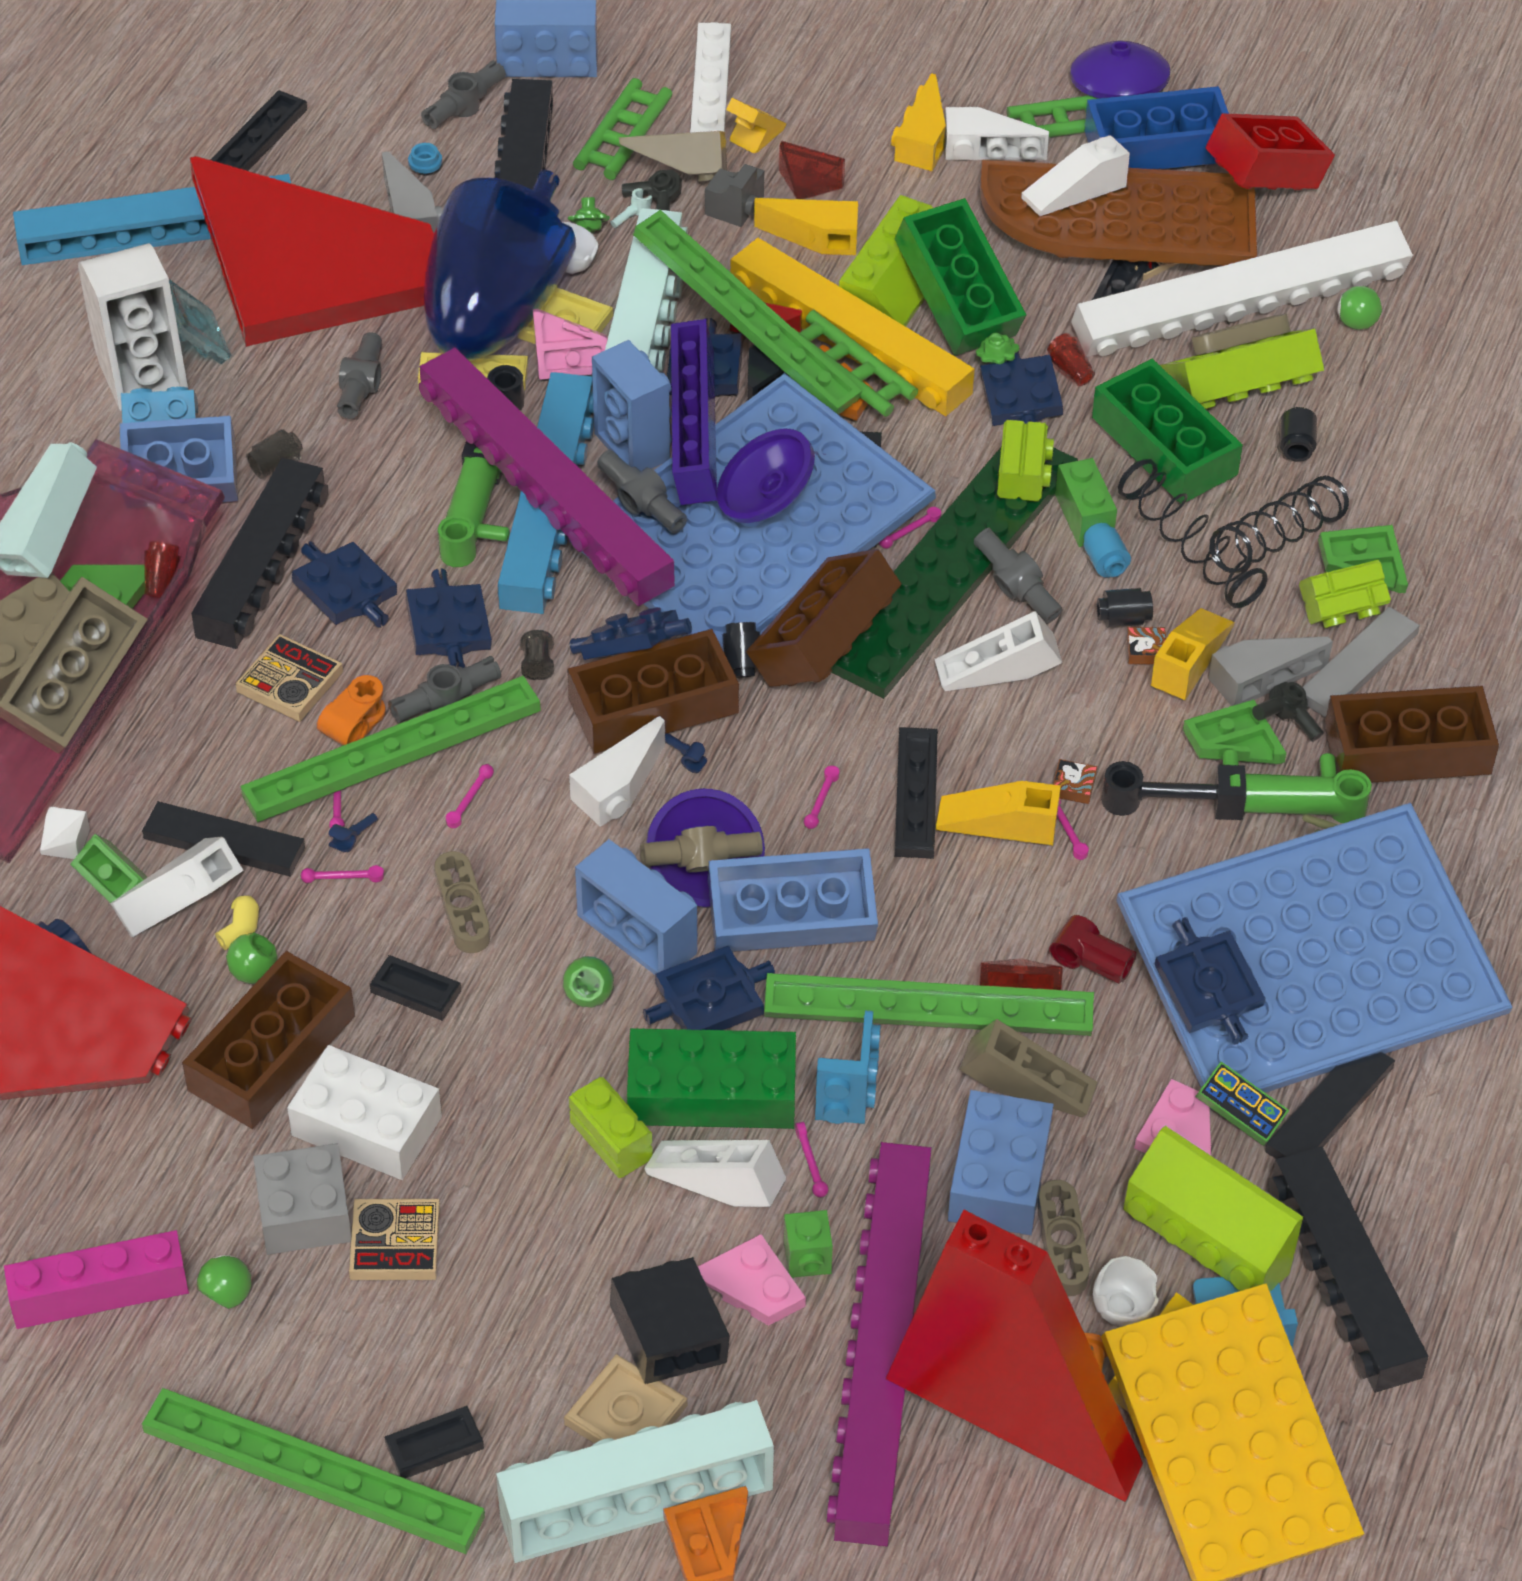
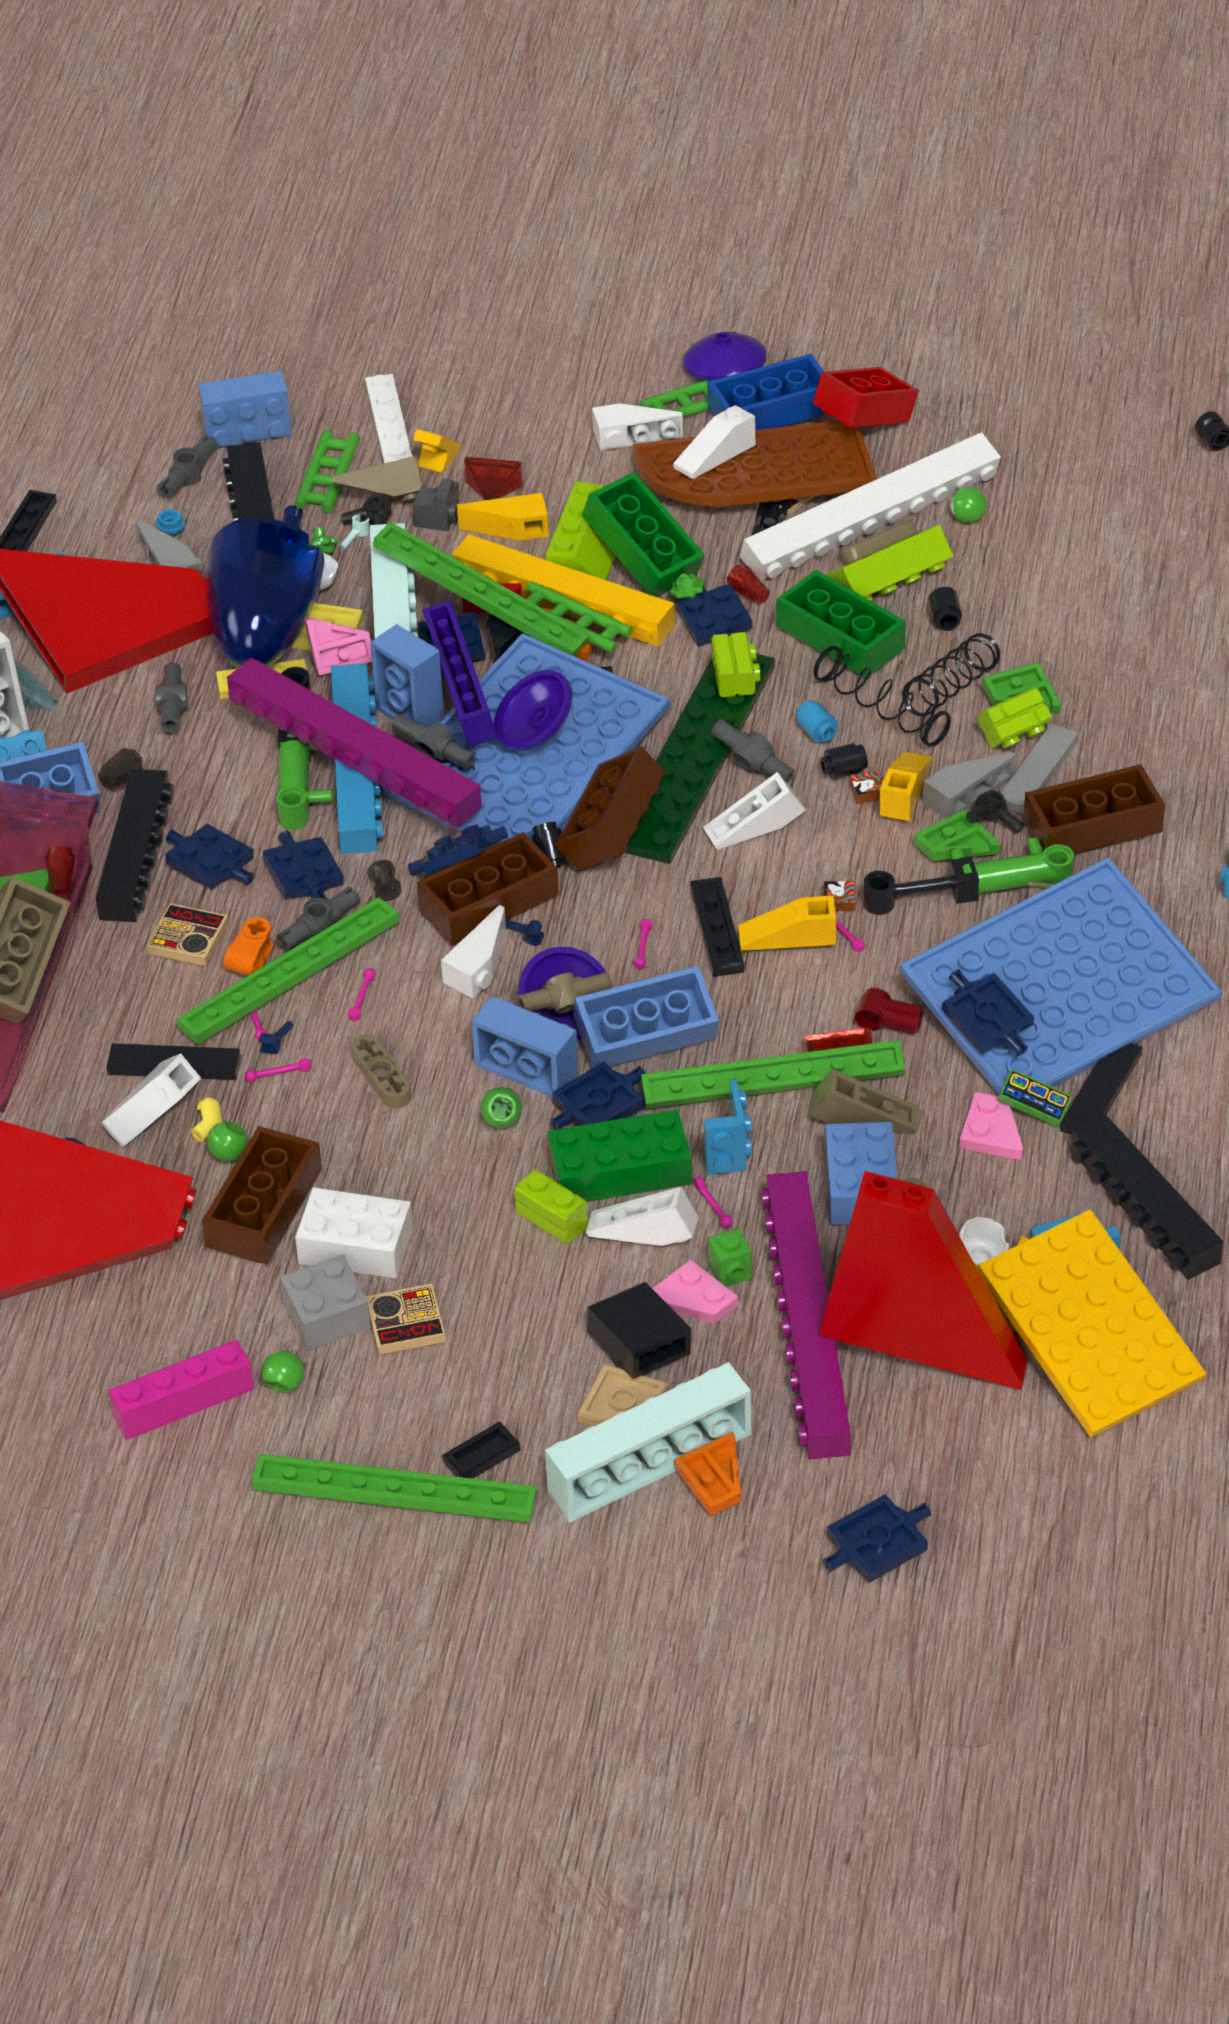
camera: 10 degrees left, 5 degrees down
(64, 832) = (43, 1080): white slope -> none
(107, 868) = (86, 1101): bright green slope -> none
(415, 987) = (363, 1139): black tile -> none
(922, 133) = (577, 429): yellow slope -> none
(933, 515) = (670, 721): dark pink hinge -> none
(1084, 497) = (788, 685): bright green brick -> none
(1213, 1213) = (1033, 1172): lime slope -> none

